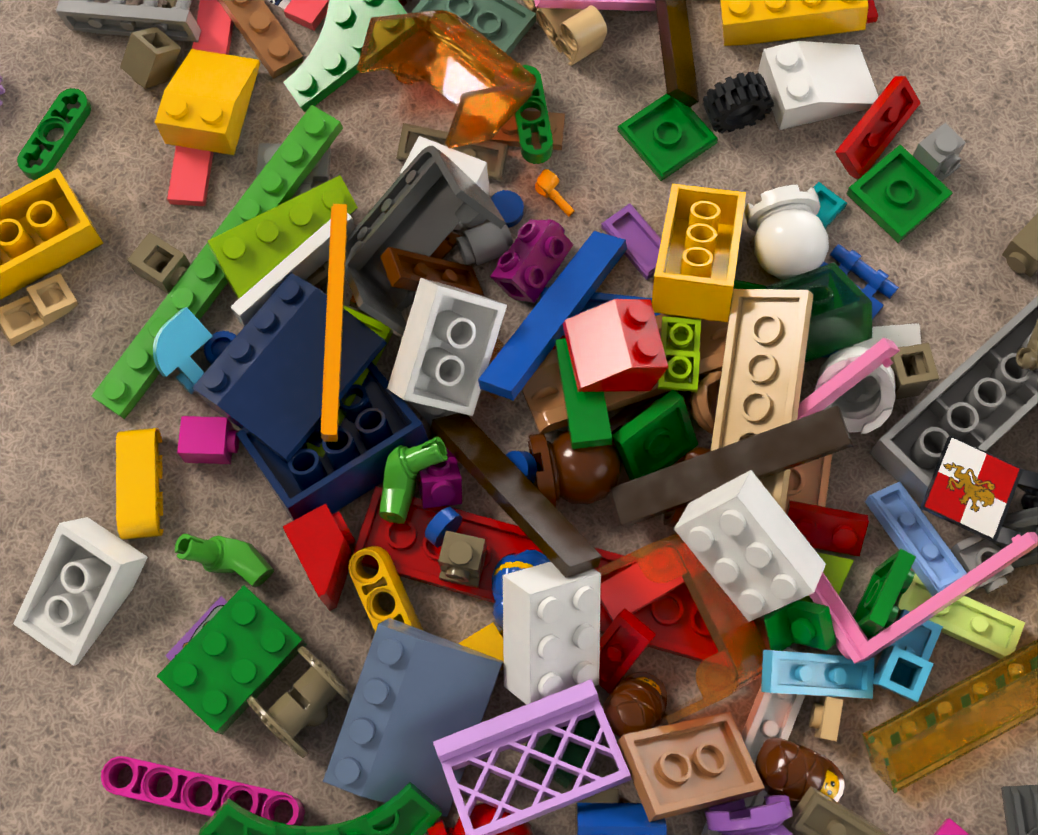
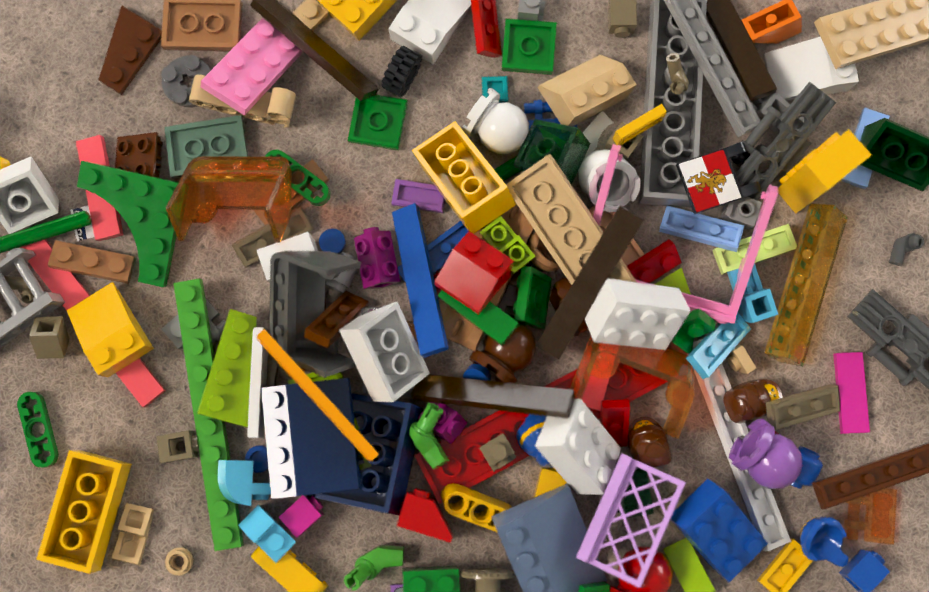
camera: 45 degrees left, 10 degrees up
(45, 365) = (171, 565): none -> tan plate
(154, 422) = (267, 533): none -> medium azure brick
(444, 520) = (471, 444): blue tile -> none
(546, 187) = (340, 209): light orange hand -> none
(690, 765) = (704, 448): medium nougat plate -> none
(876, 605) = (713, 275): green plate -> none
(922, 287) = (587, 89): none -> tan slope
(944, 358) = (639, 125): none -> yellow tile

